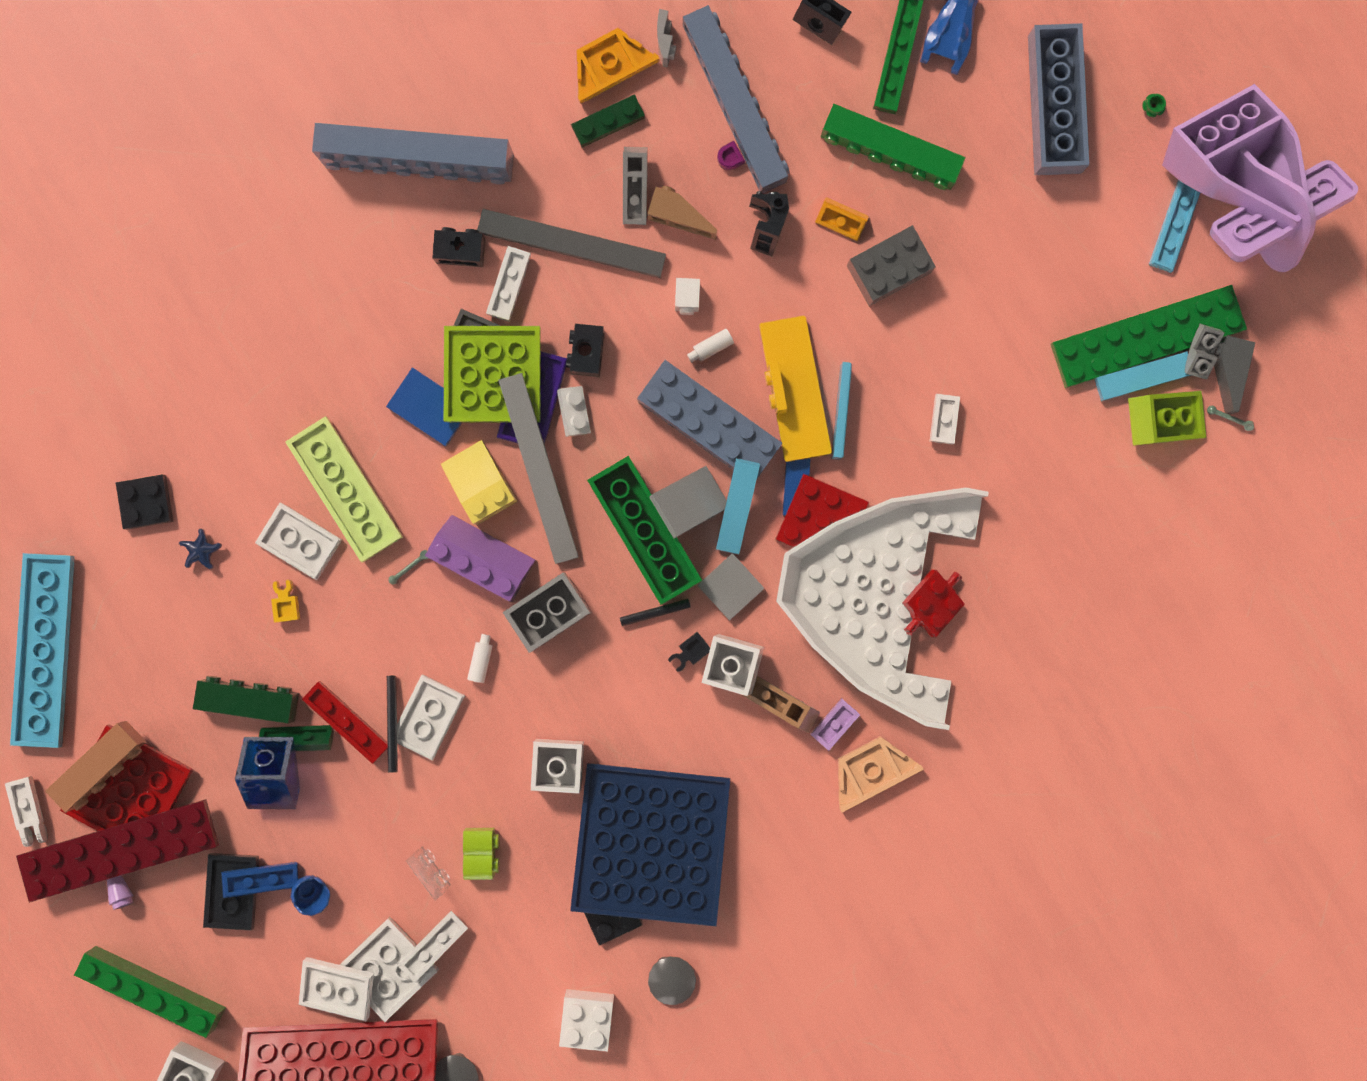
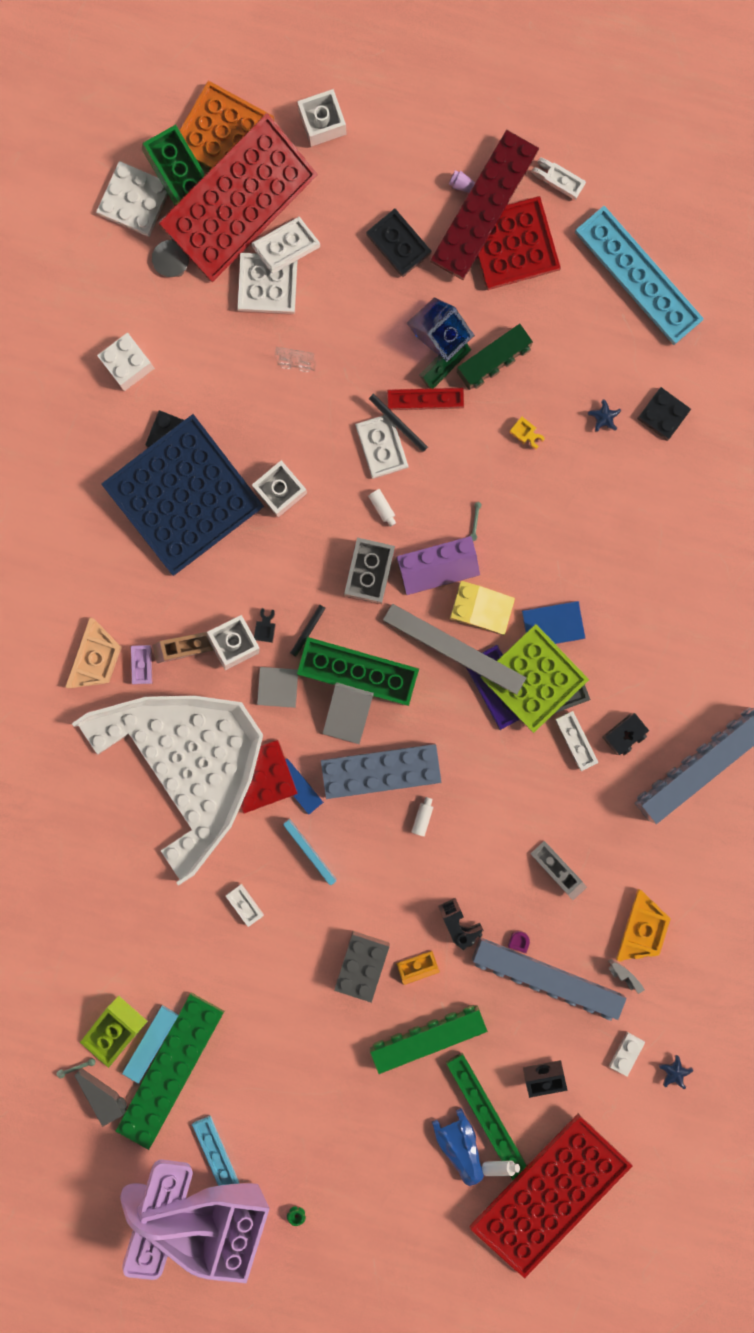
camera: 140 degrees right, 0 degrees up
(96, 766) = (542, 239): nougat brick -> none
(150, 991) = (390, 145): green brick -> none
(259, 879) = (388, 264): blue tile -> none
(298, 541) = (553, 475): white tile -> none
(310, 895) = (351, 282): blue hair -> none
(344, 489) = (556, 530): yellowish green plate -> none
(432, 946) = (253, 319): white plate -> none
(479, 853) = (277, 397): lime brick -> none
(571, 243) = (563, 800): dark grey tile -> none
(573, 411) = (466, 702): white plate -> none
(593, 337) = (483, 739): black brick -> none
(608, 121) = (611, 894): dark green plate -> none
(671, 980) = (98, 429): dark grey dish -> none
(674, 211) = (517, 878): medium nougat slope -> none
(687, 295) = (464, 833): white brick -> none
(737, 506) = (317, 737): medium azure tile -> none
(794, 388) = (350, 839): yellow bracket -> none
(933, 603) = (149, 789): red plate -> none
(1058, 99) = (356, 1163): sand blue brick -> none
(1202, 350) = (128, 1089): light grey slope -> none

